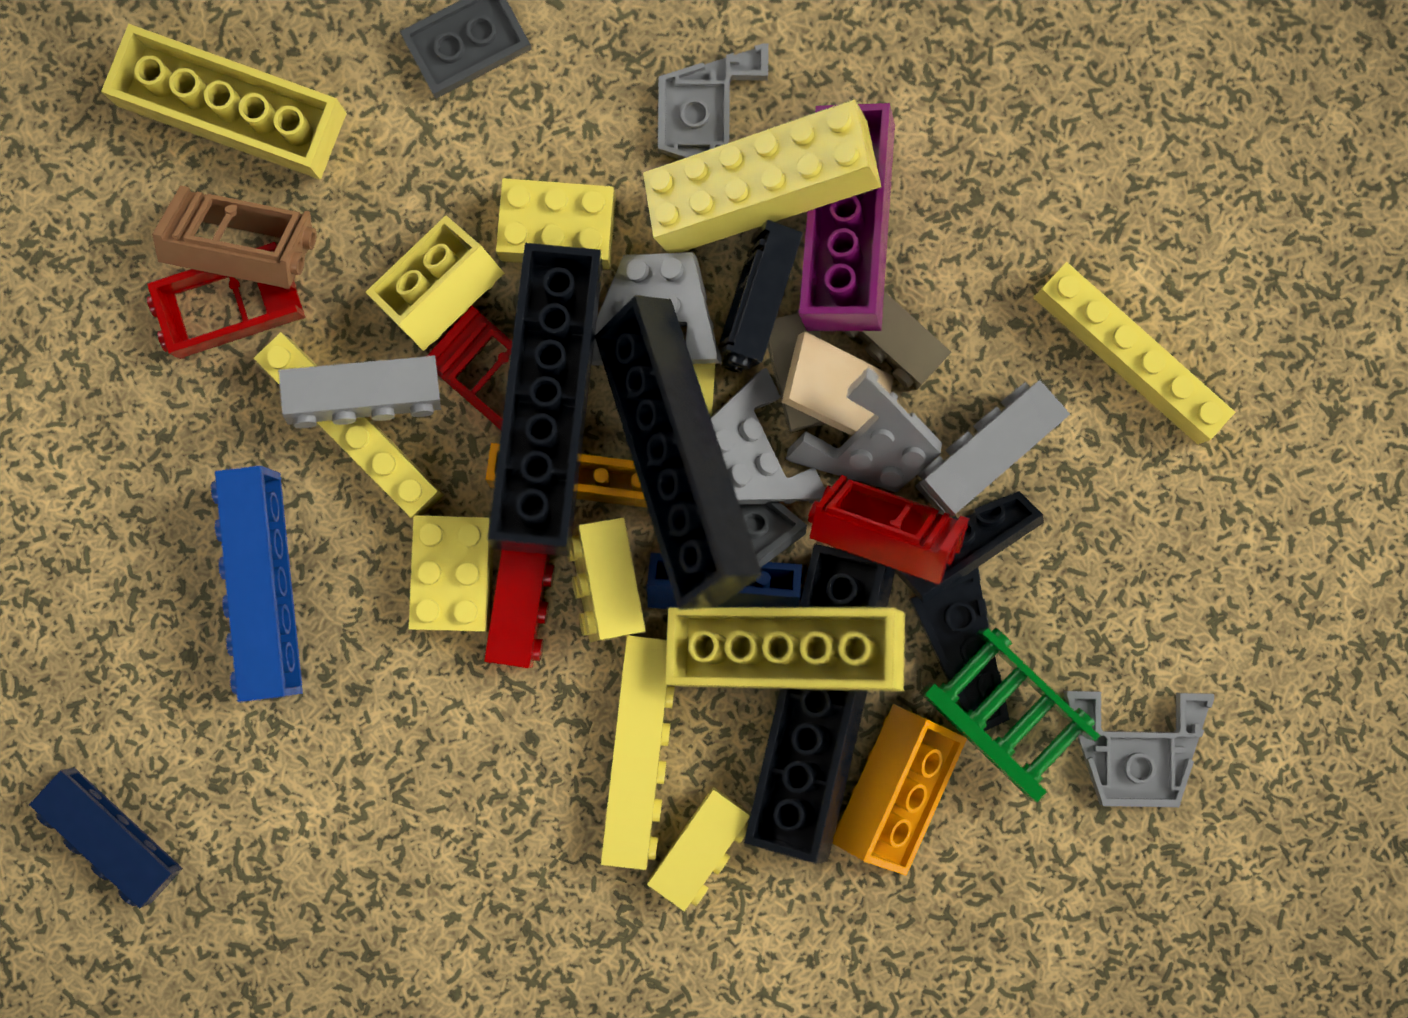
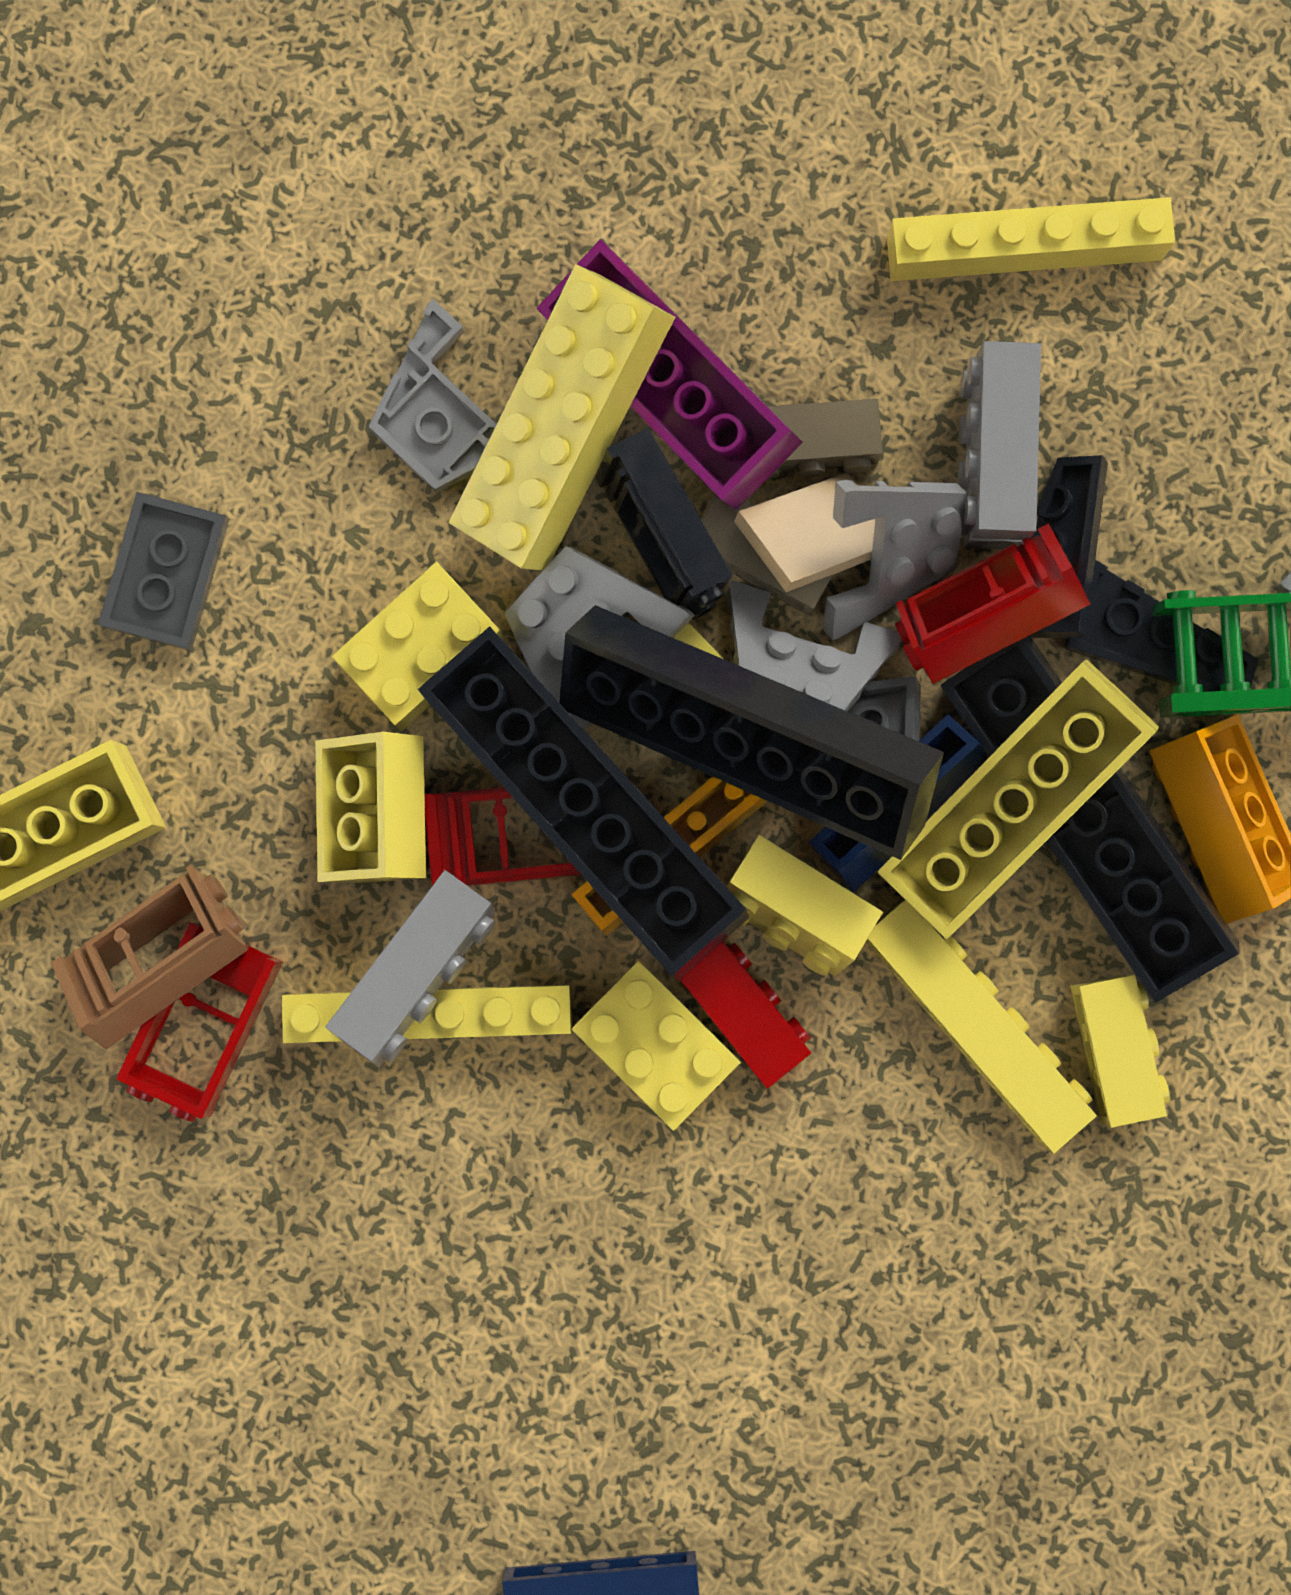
camera: 45 degrees left, 0 degrees up
(257, 583) = (500, 1235): blue brick -> none

